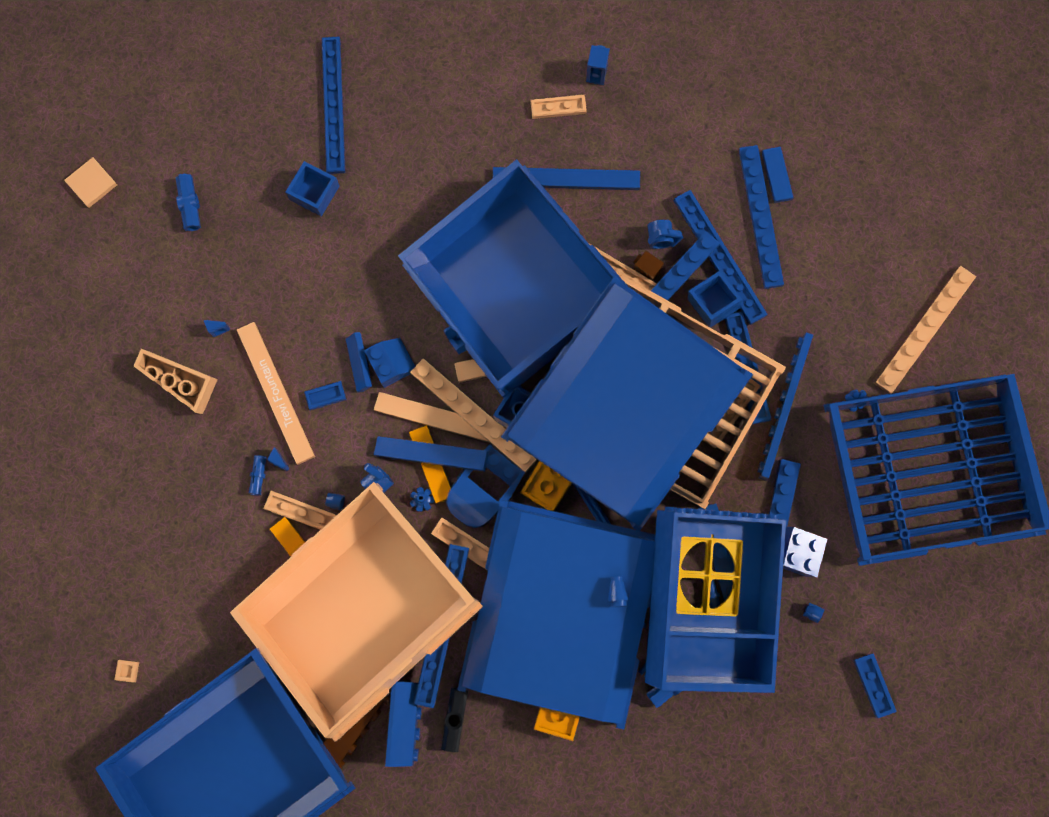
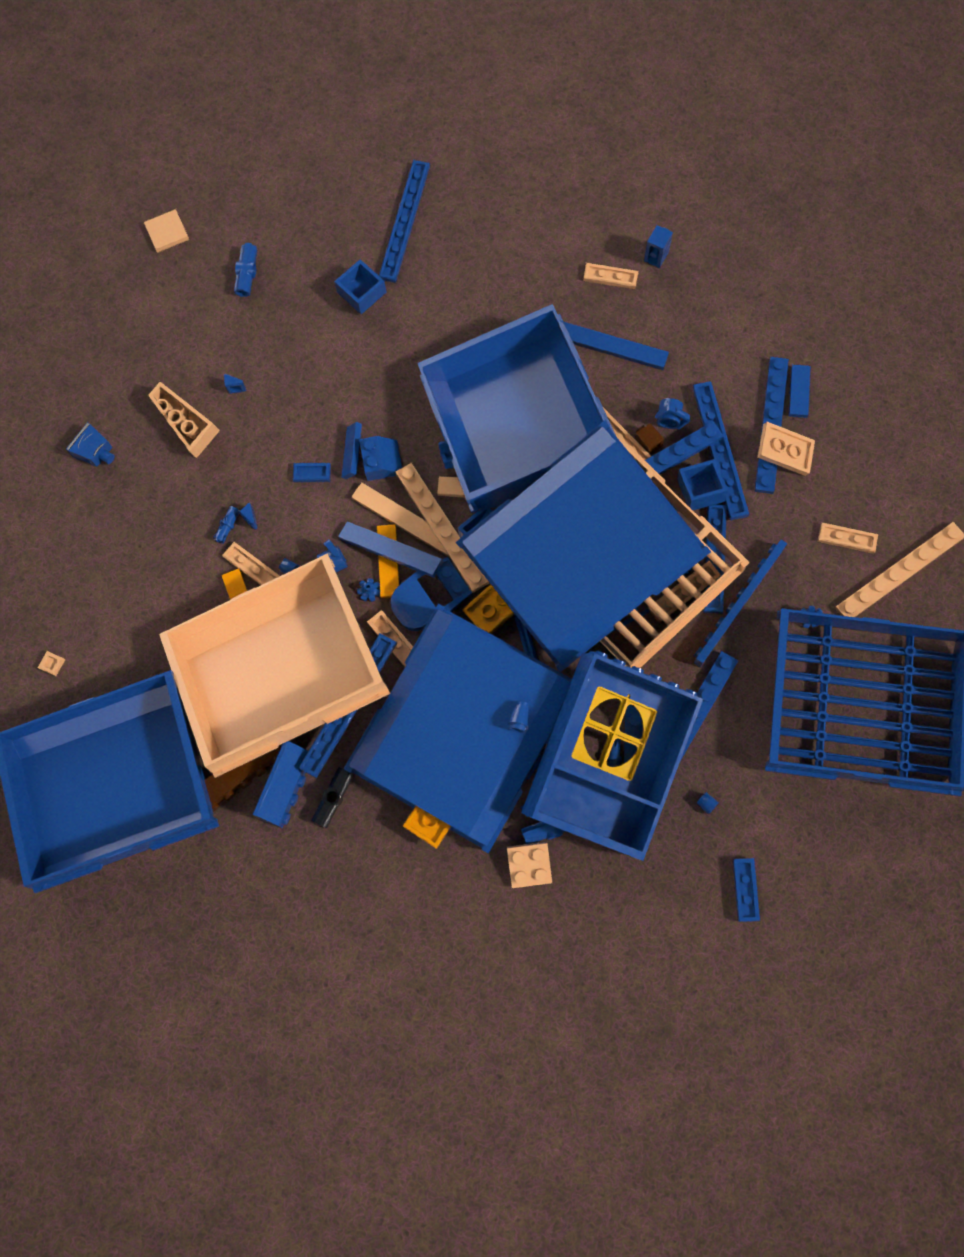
camera: 20 degrees right, 5 degrees down
(91, 435) = (90, 447): none -> blue torso
(276, 393) = (267, 458): light nougat tile -> none
(665, 726) = (529, 864): none -> light nougat plate
(783, 238) = (786, 448): none -> light nougat plate
(803, 552) = (711, 740): piece -> none
(866, 310) = (847, 538): none -> light nougat tile

